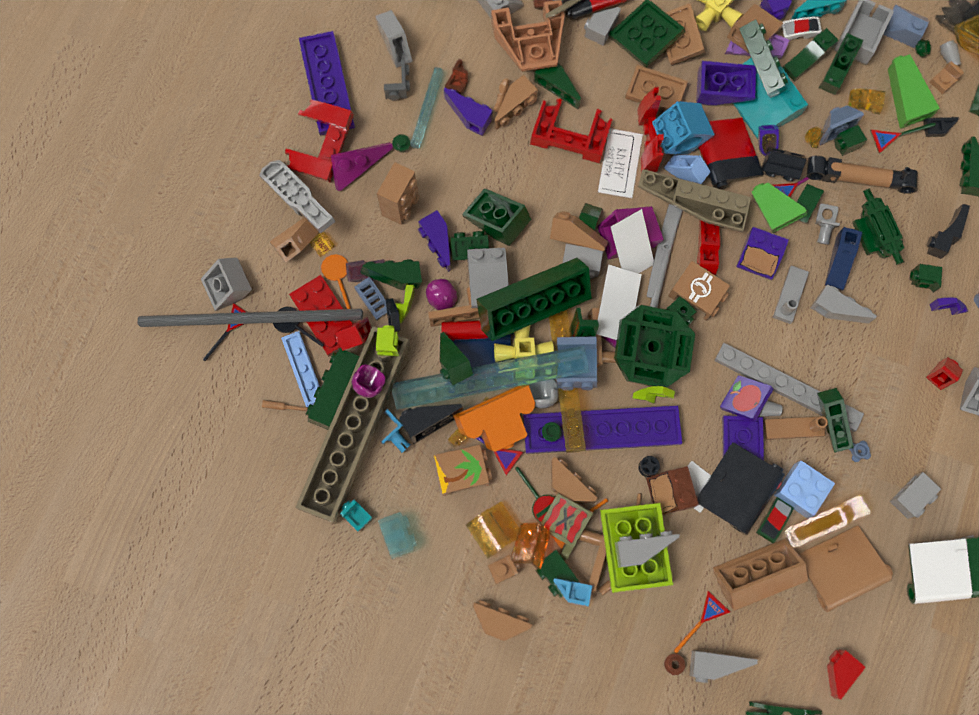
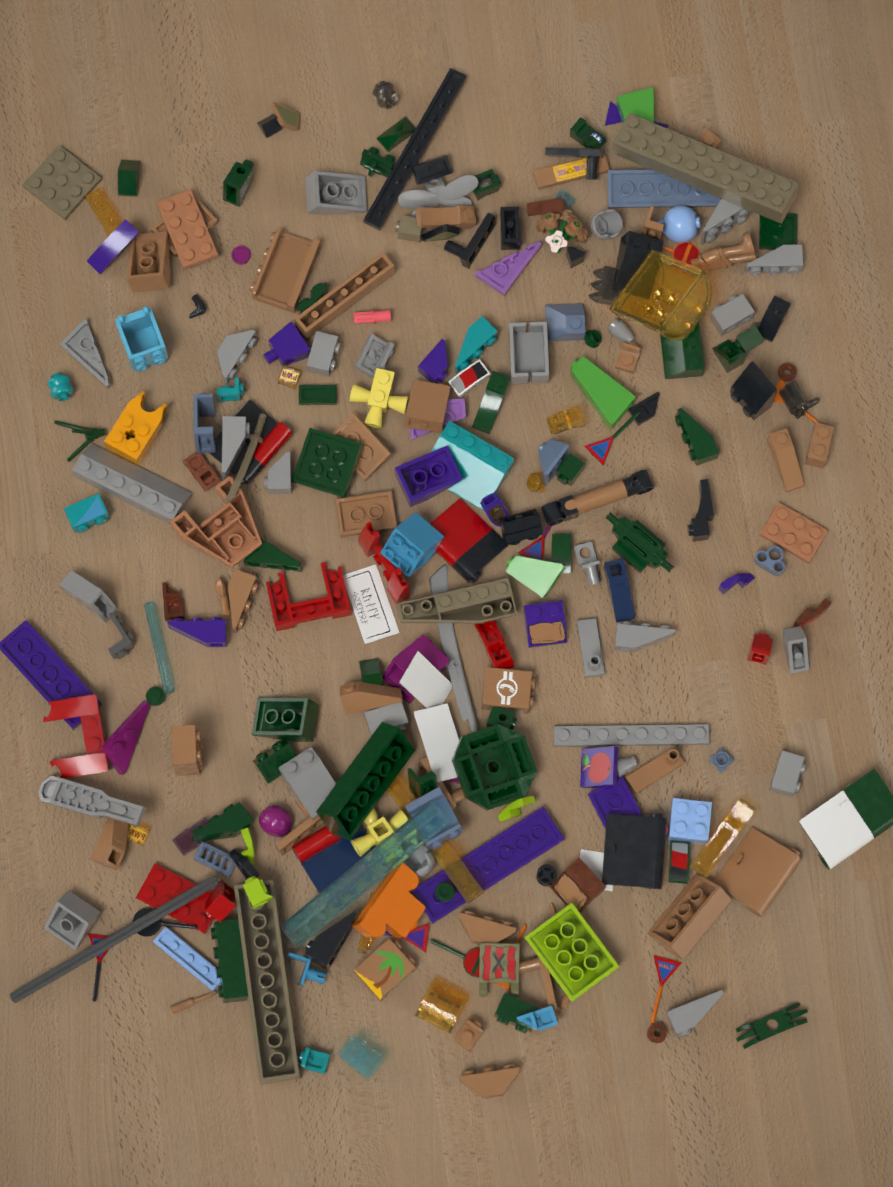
camera: 30 degrees left, 0 degrees up
(335, 269) = (163, 850): orange piece -> none
(368, 381) = (261, 937): magenta hair -> none
(436, 232) = (238, 765): dark purple slope -> none
(454, 363) = (326, 878): dark green slope -> none
(530, 544) = (480, 1000): clear orange bracket -> none
(638, 551) = (574, 954): light grey slope -> none
(688, 168) = (436, 578): light blue slope -> none
(763, 59) = (451, 439): brick -> none
(834, 410) = (685, 745): dark green slope -> none
(841, 64) = (524, 399): dark green slope -> none
(842, 672) = (798, 960): red slope -> none
(926, 277) = (701, 566): dark green window -> none

